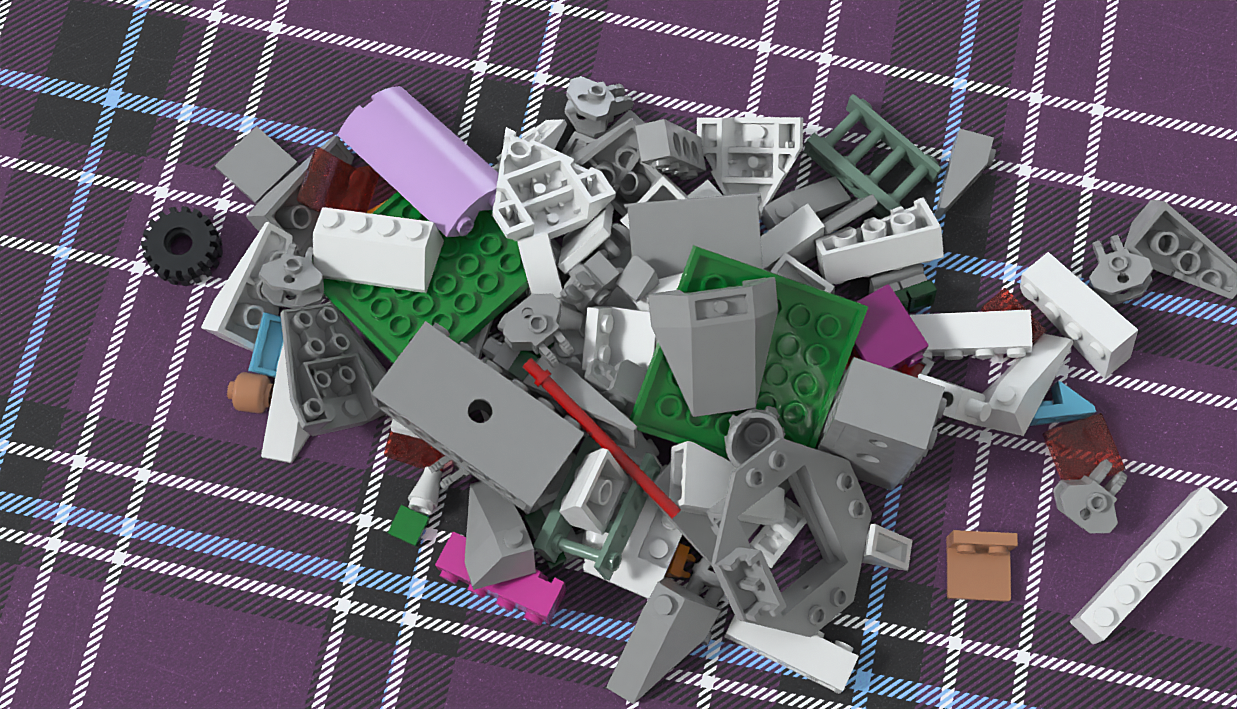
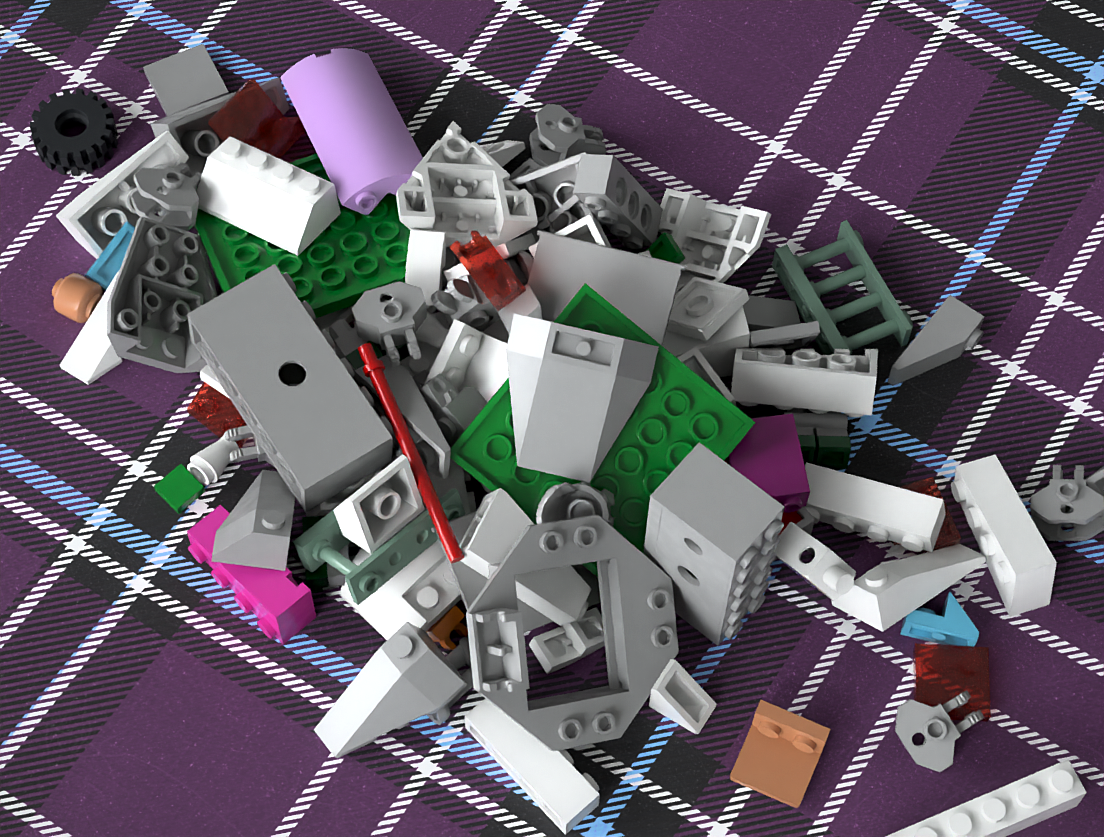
camera: 20 degrees right, 10 degrees down
(600, 256) = (488, 270): none -> clear red hinge
(719, 175) = (666, 249): none -> green tile
(781, 215) = (704, 307): none -> white tile

